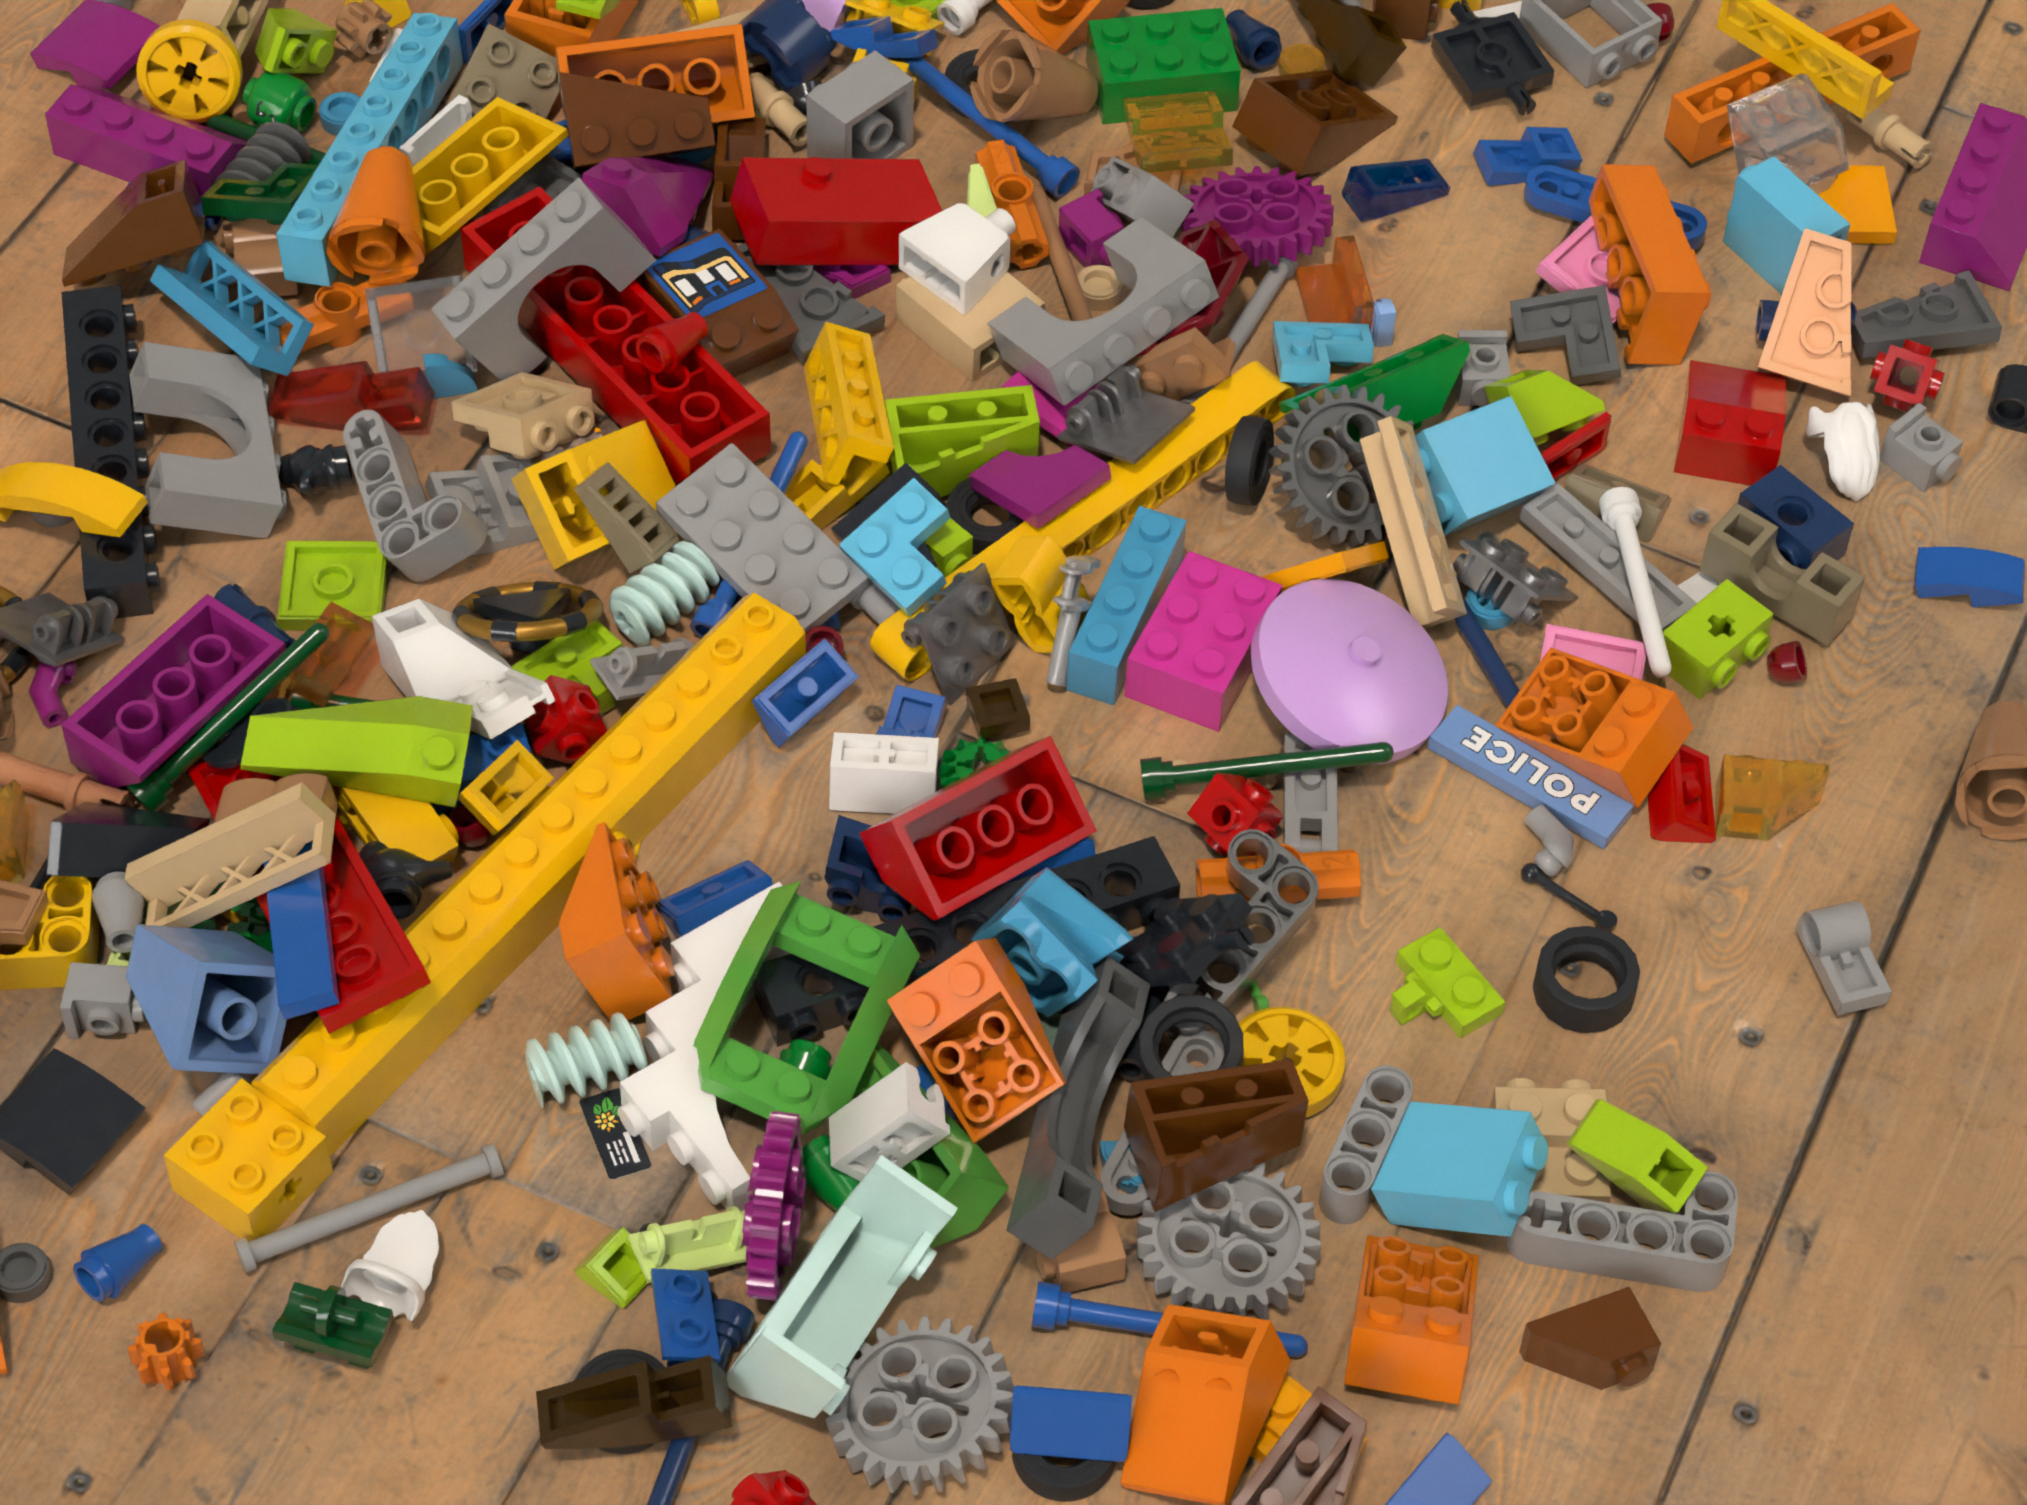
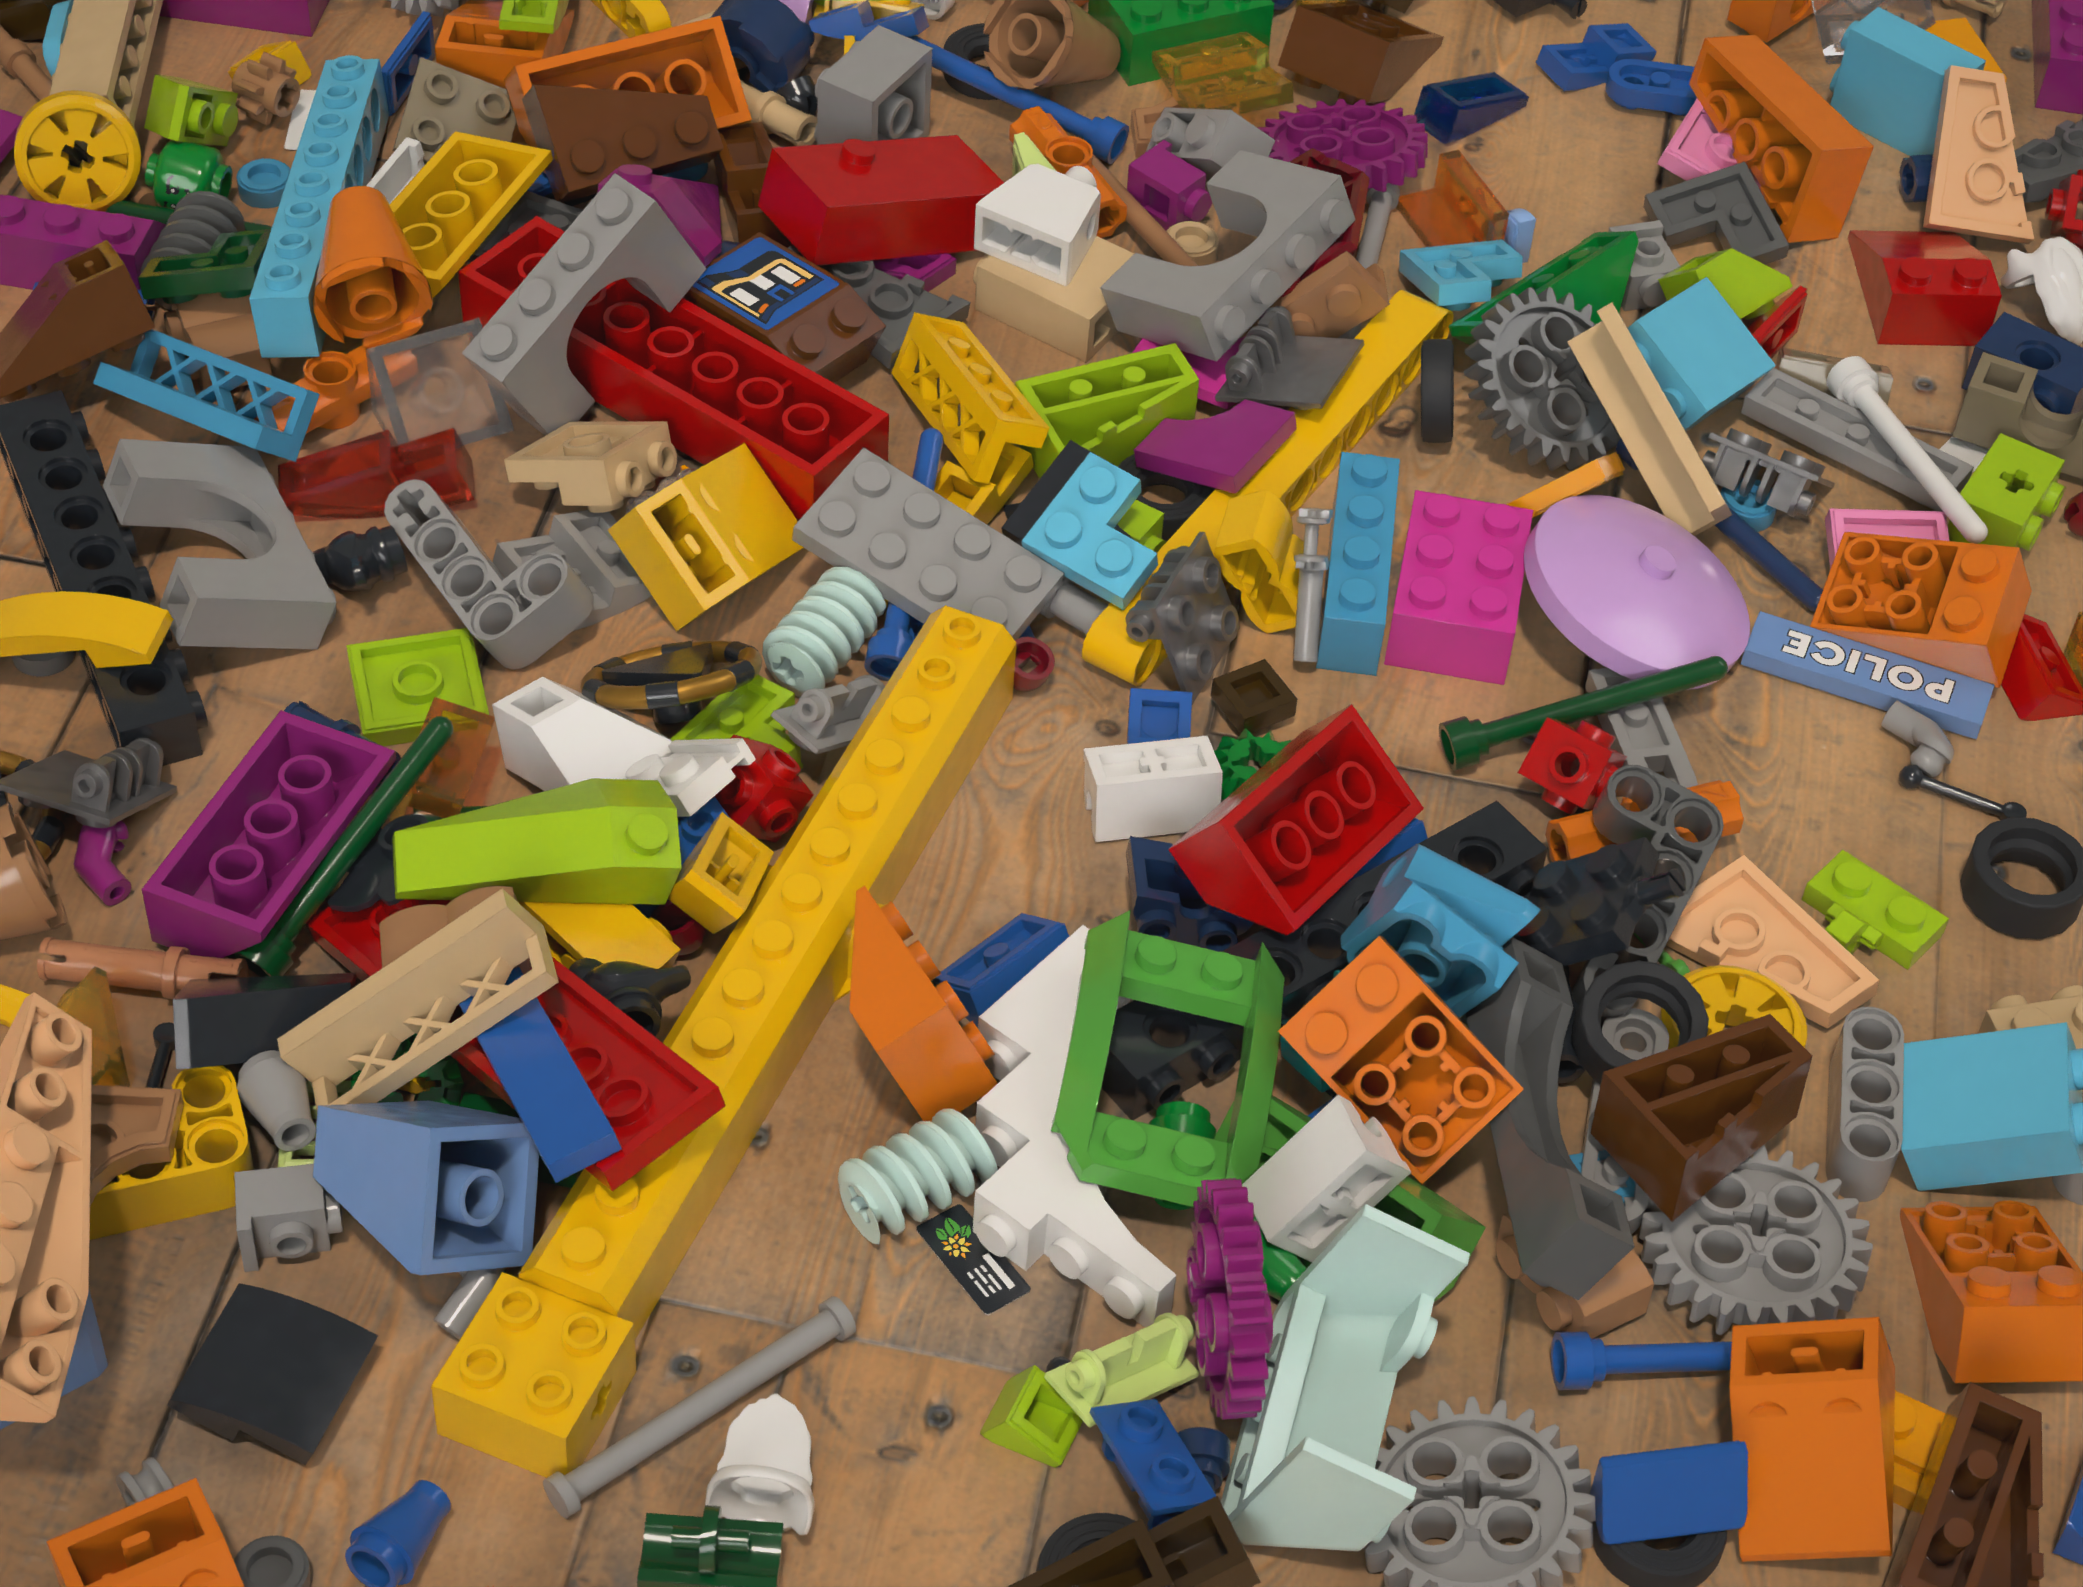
camera: 15 degrees left, 5 degrees down
(447, 376) = (484, 437): dark azure tile -> none
(637, 530) = (761, 552): dark tan slope -> none
(668, 343) = (750, 354): red cone -> none
(803, 692) = (1028, 713): blue slope -> none
(1338, 982) = (1755, 925): none -> light nougat wing

